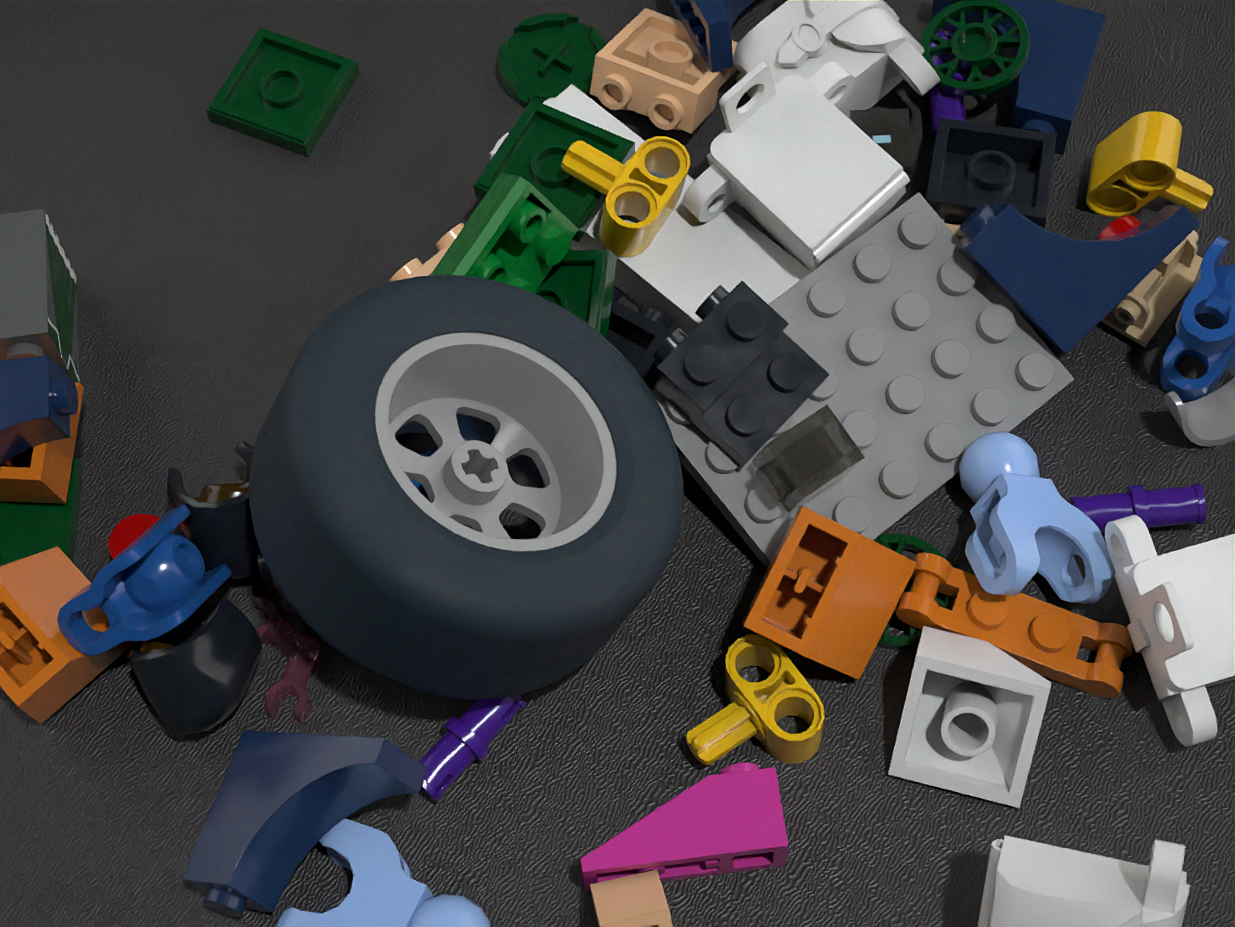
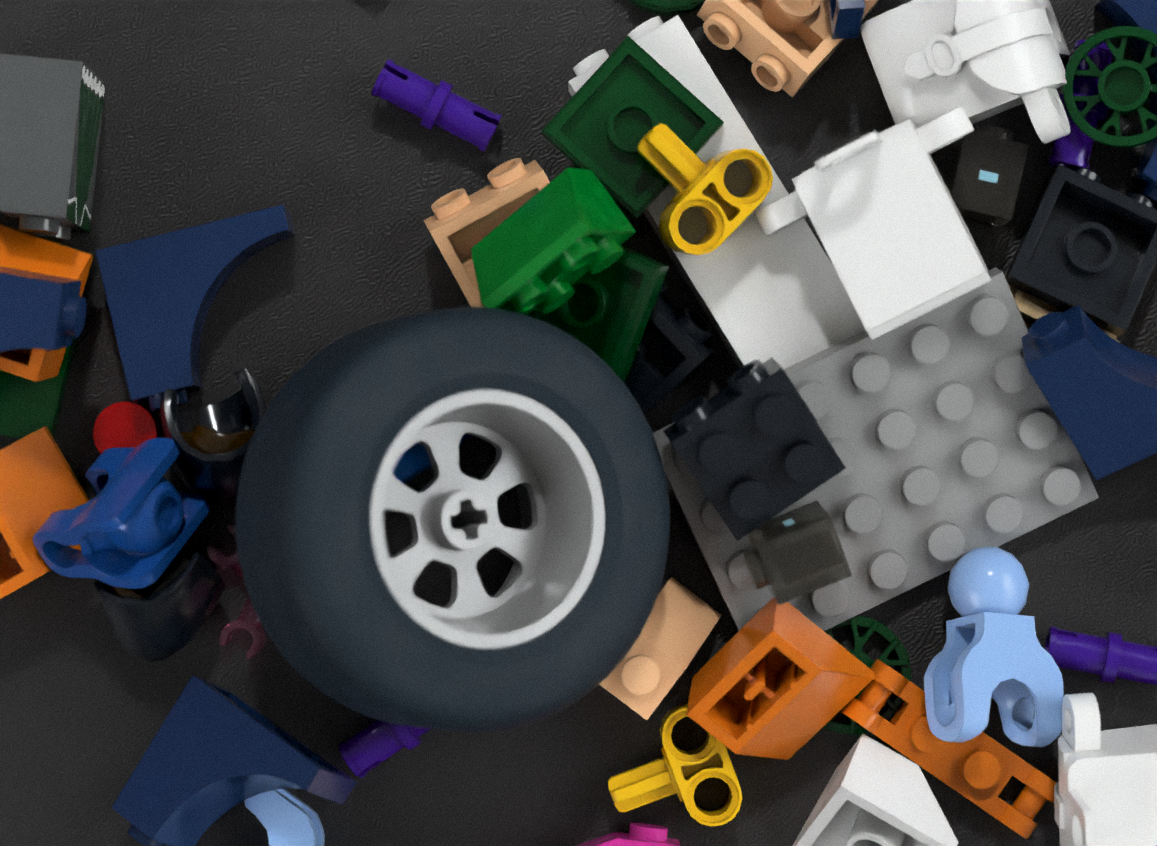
camera: 10 degrees right, 25 degrees up
(164, 397) = (164, 291): none -> dark blue arch
(377, 212) = (436, 105): none -> dark purple pin
(696, 611) = (663, 648): none -> light nougat slope

